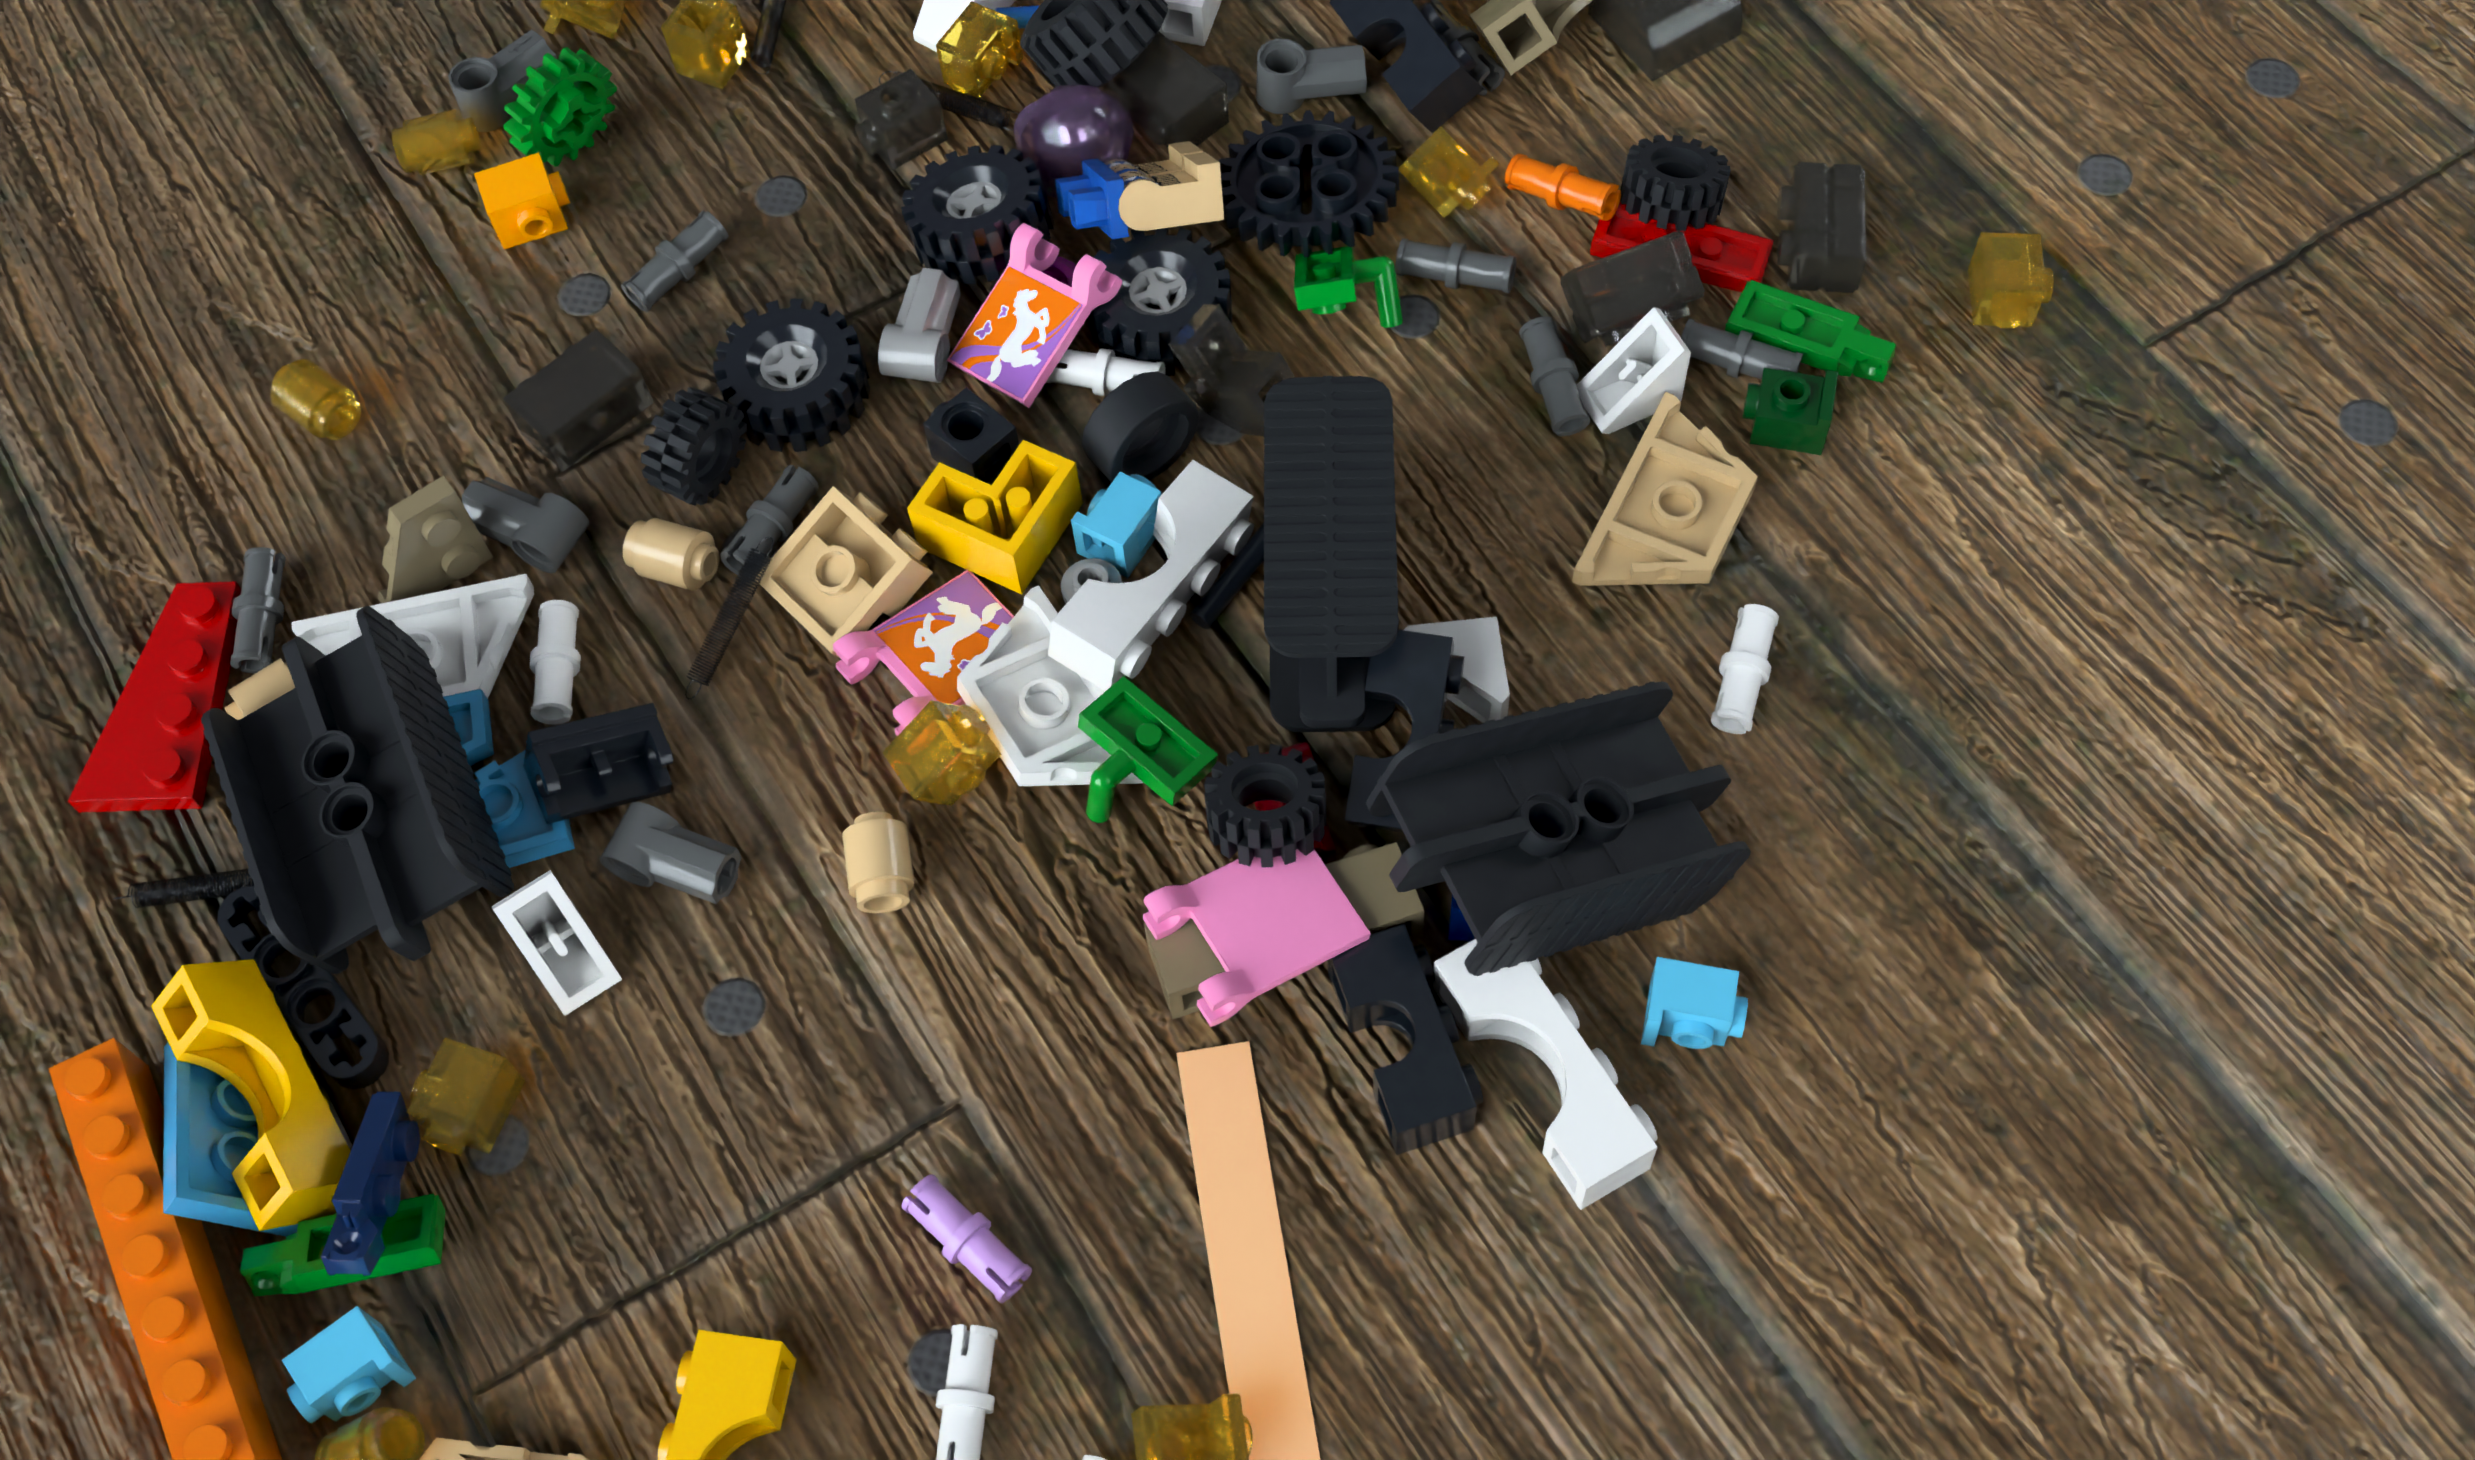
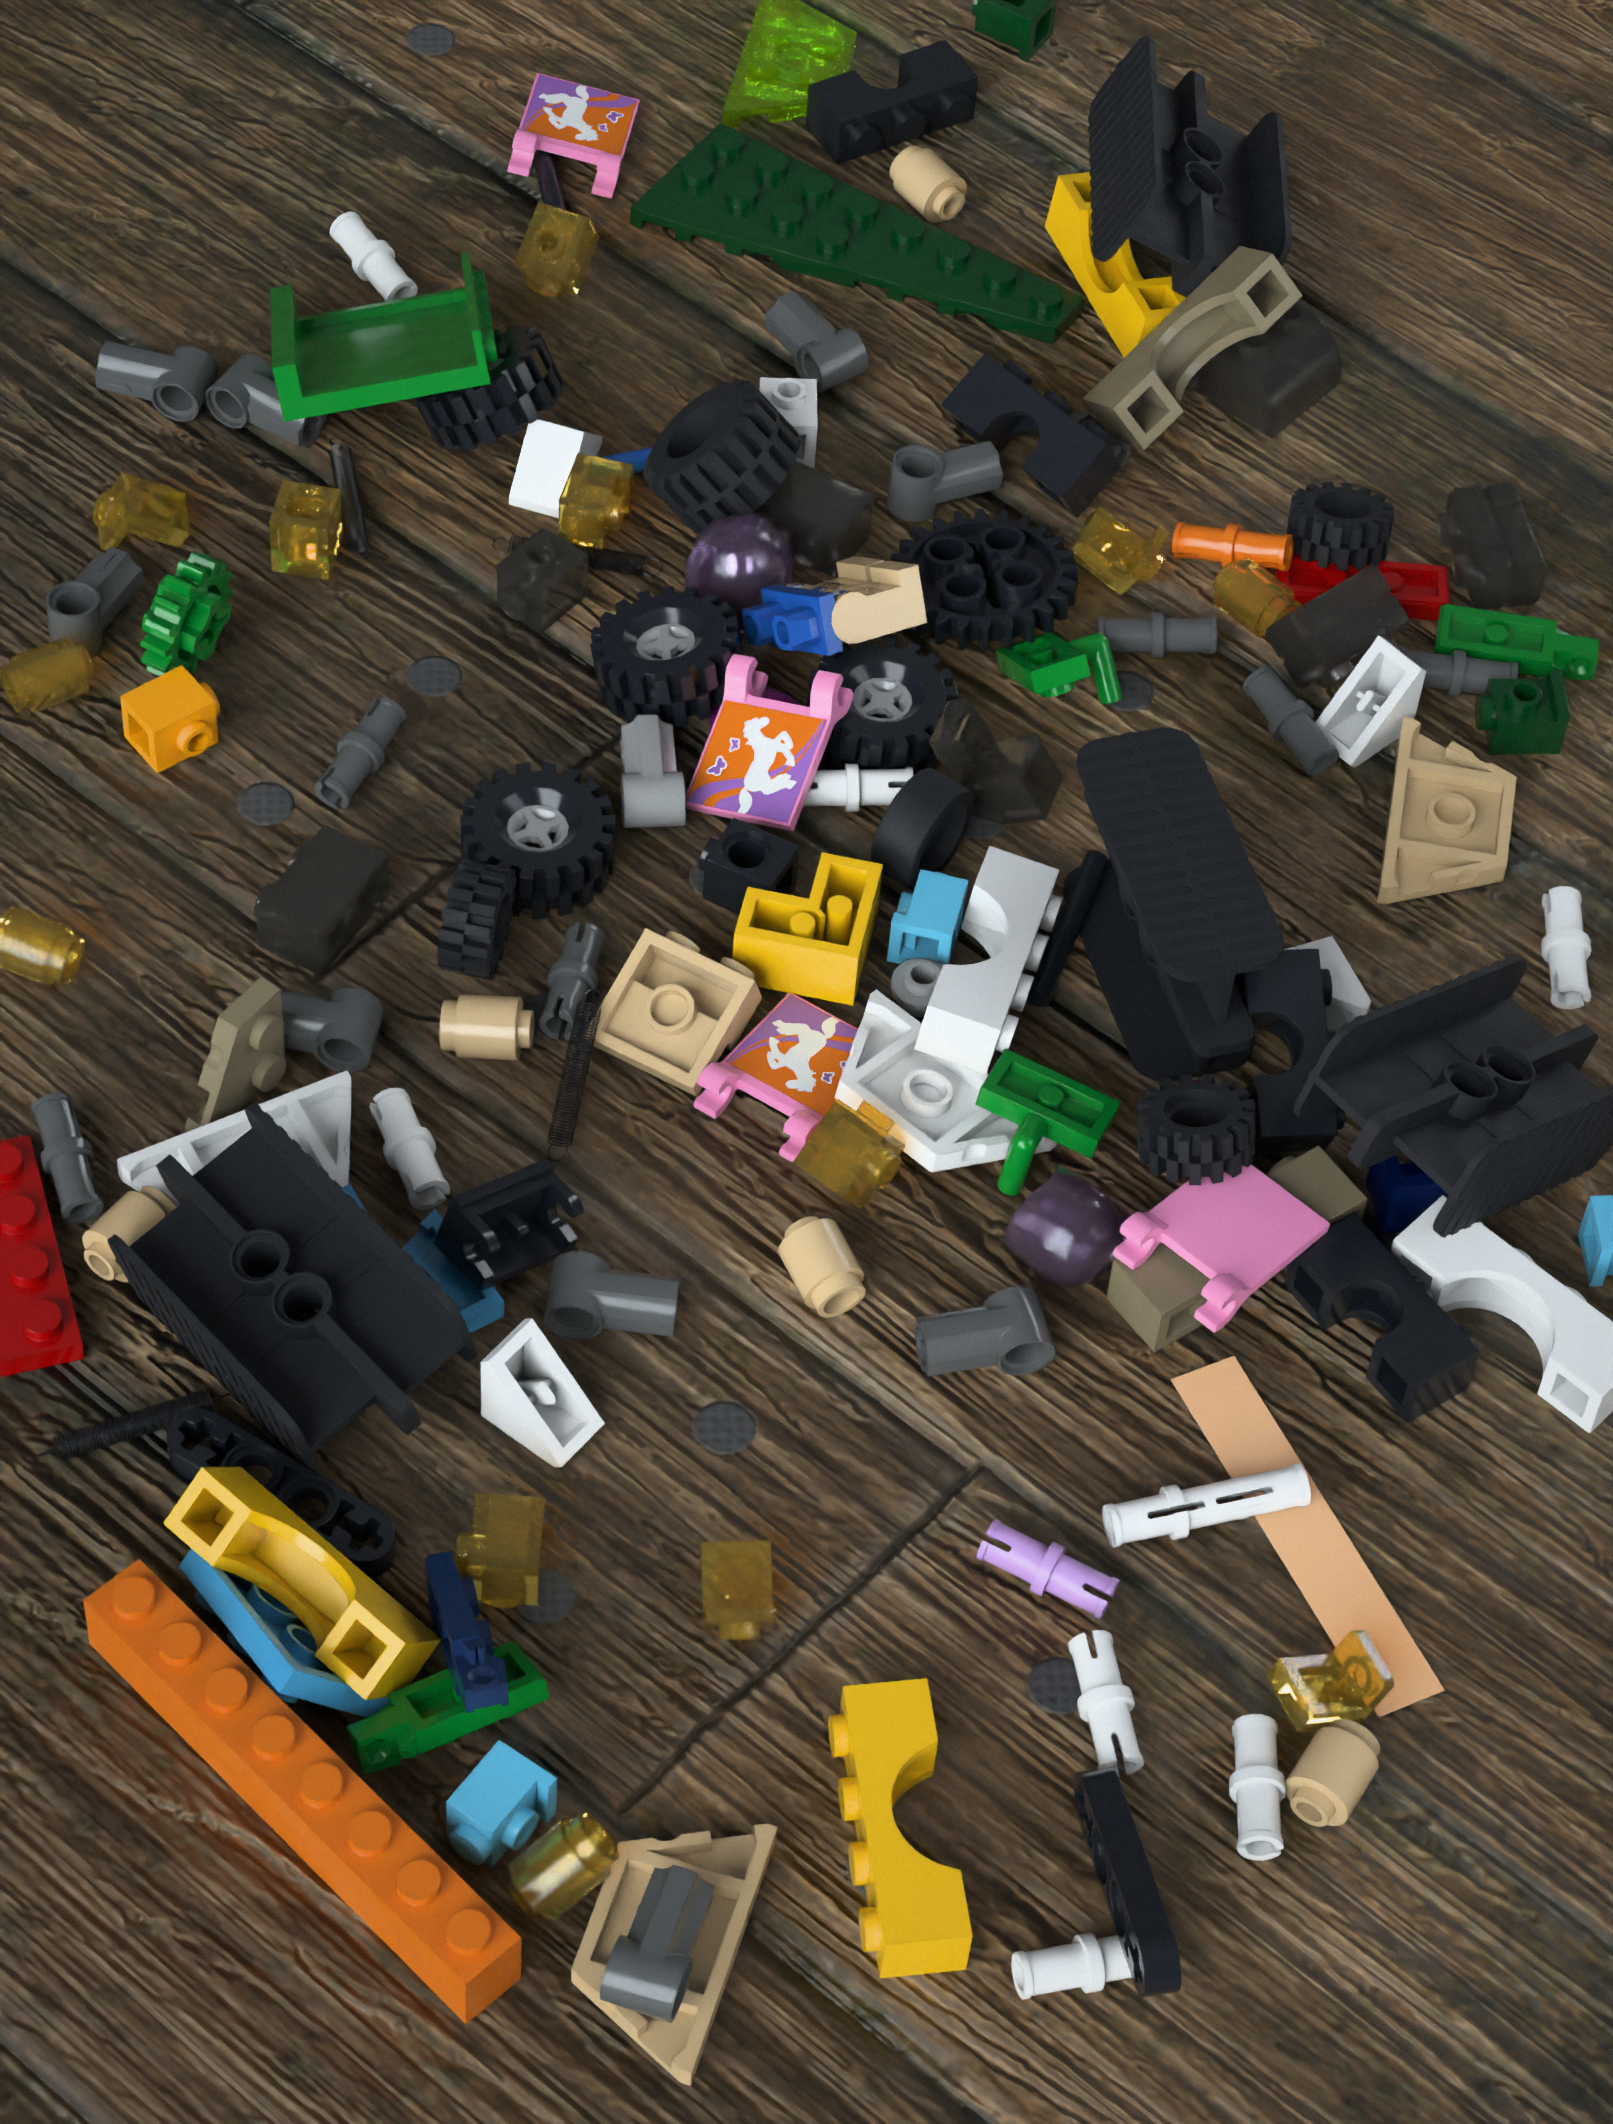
camera: 25 degrees left, 10 degrees down
(659, 1191) = (737, 1588): none -> clear yellow bracket
(1020, 972) = (1002, 1332): none -> dark grey piece
(1066, 1205) = (1130, 1520): none -> white pin
(1111, 875) = (1066, 1230): none -> clear purple helmet
(1562, 239) = (1252, 595): none -> clear yellow brick

